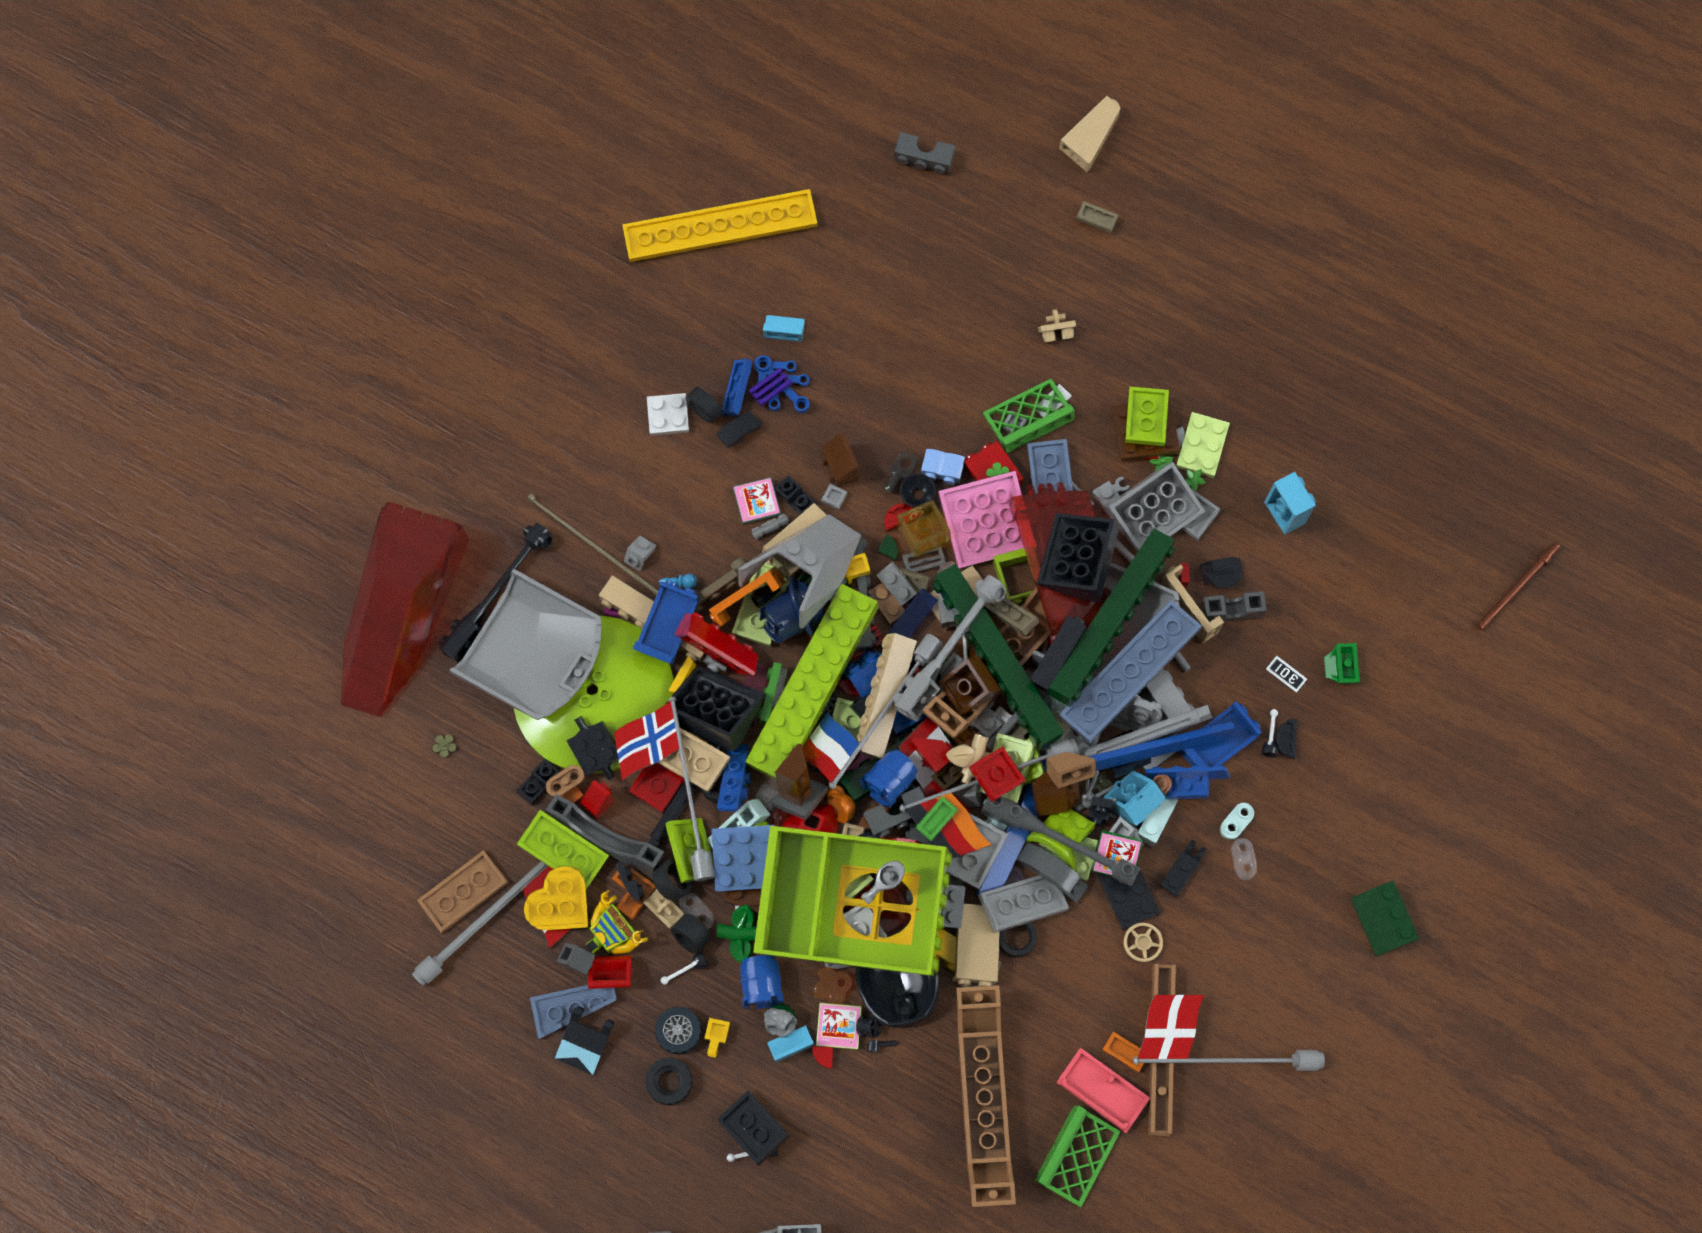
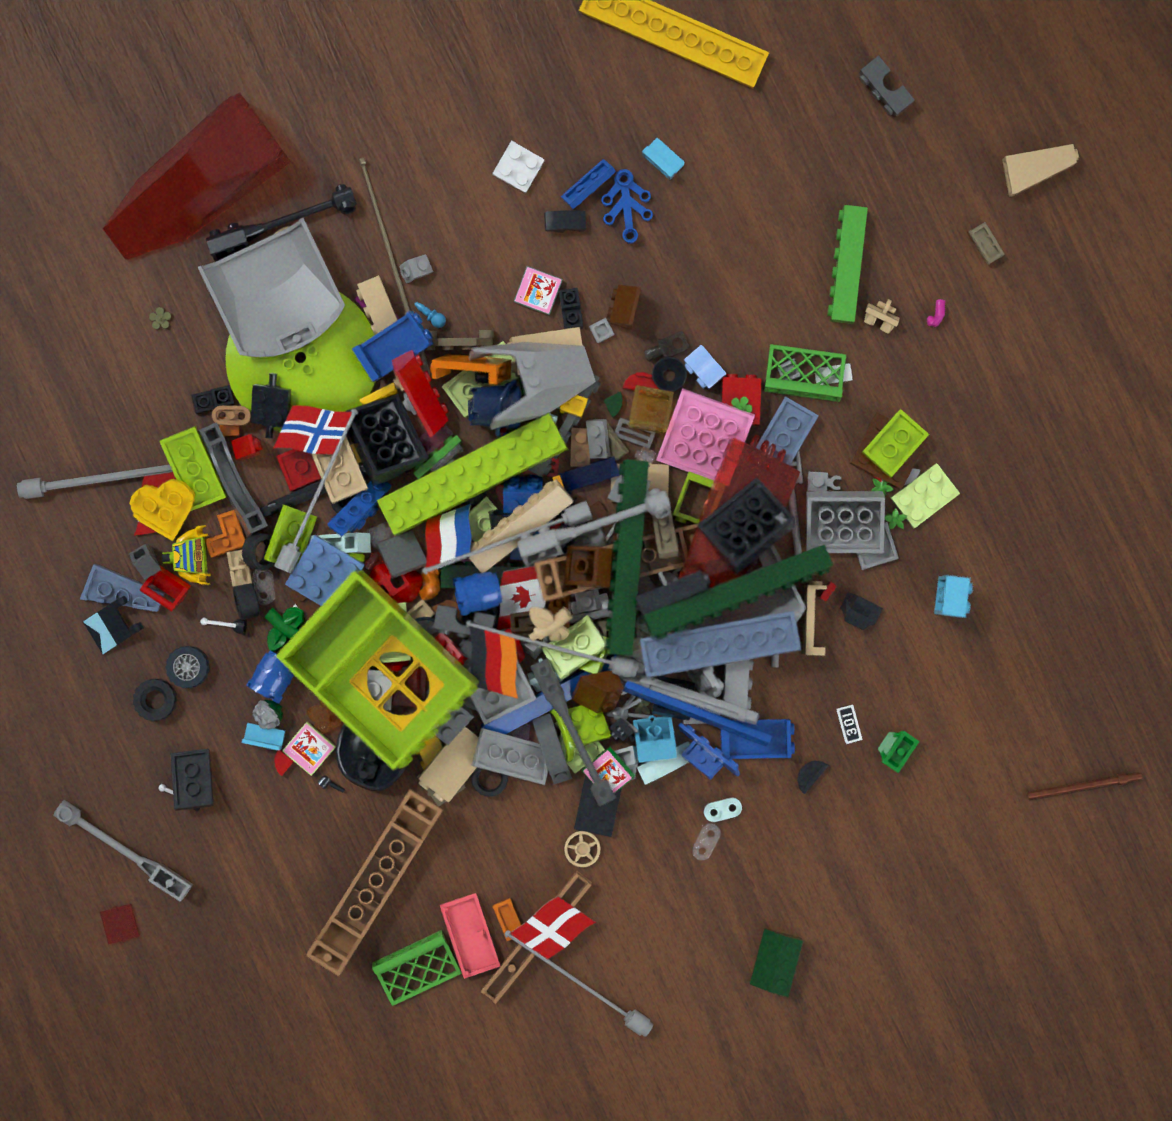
camera: 35 degrees right, 15 degrees up
(462, 891) = (98, 445): medium nougat tile -> none
(634, 890) = (226, 537): black slope -> none
(703, 405) = (550, 181): black tyre -> none
(716, 1033) = (214, 689): yellow plate -> none
(764, 382) = (617, 210): dark purple tile -> none
(770, 526) = (532, 319): light grey axle -> none
(794, 778) = (405, 539): reddish brown slope -> none
(868, 1027) = (329, 765): black wheel -> none
(887, 878) = (410, 676): light grey piece -> none
(932, 752) = (525, 594): red slope -> none
(936, 818) = (488, 650): bright green tile -> none
(997, 774) = (558, 650): red tile -> none
(998, 306) = (848, 264): none -> bright green brick
(1070, 768) = (616, 686): medium nougat slope -> none
(1102, 295) = (939, 314): none -> dark pink arm
(1163, 782) = (684, 743): nougat plate -> none
(1182, 870) = (653, 816): black hinge -> none
(1244, 607) = (846, 645): dark grey arch -> none
(1270, 748) = (790, 772): hinge -> none

